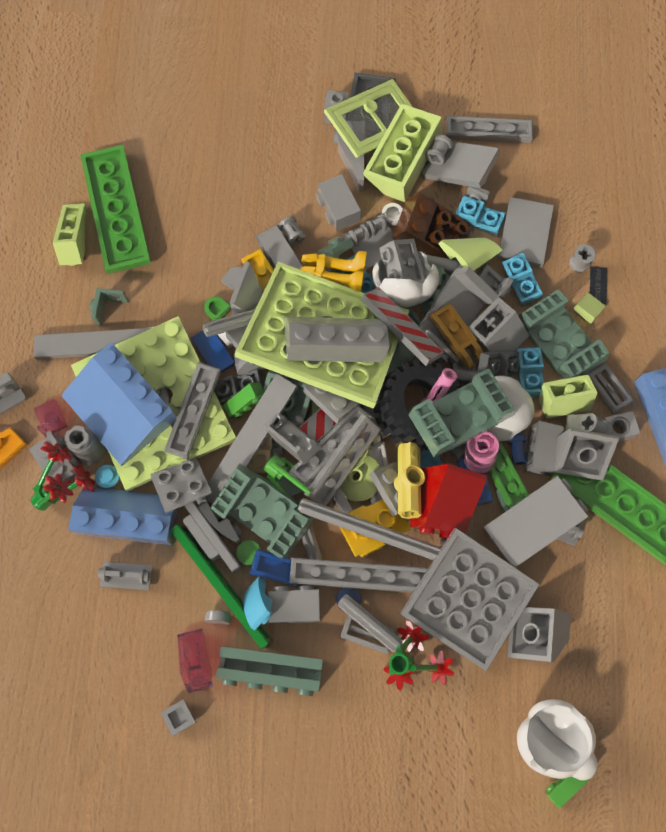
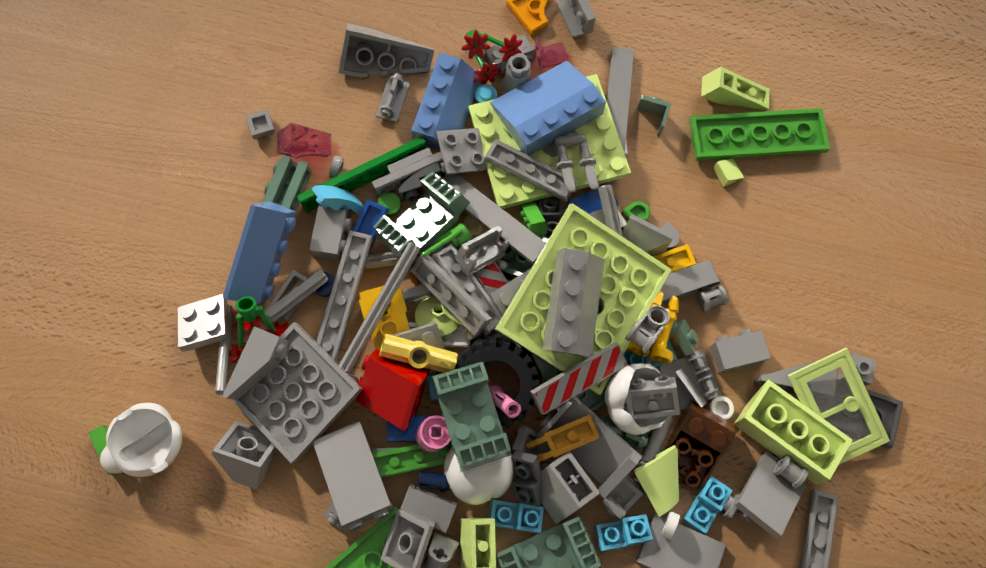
camera: 95 degrees right, 0 degrees up
(71, 606) = (377, 53): none -> light grey wedge
(159, 232) = (727, 172): none -> yellowish green slope
(184, 375) = (566, 165): none -> light grey piece
(336, 665) = (260, 252): none -> medium blue slope
(347, 270) = (646, 330): none -> light grey piece
(381, 238) = (697, 396): none -> white sticker
(419, 717) = (202, 323): none -> plate
(442, 684) = (223, 358): none -> light grey bar
(444, 638) = (258, 359): none -> light grey slope
(508, 239) = (670, 525): none -> white tile

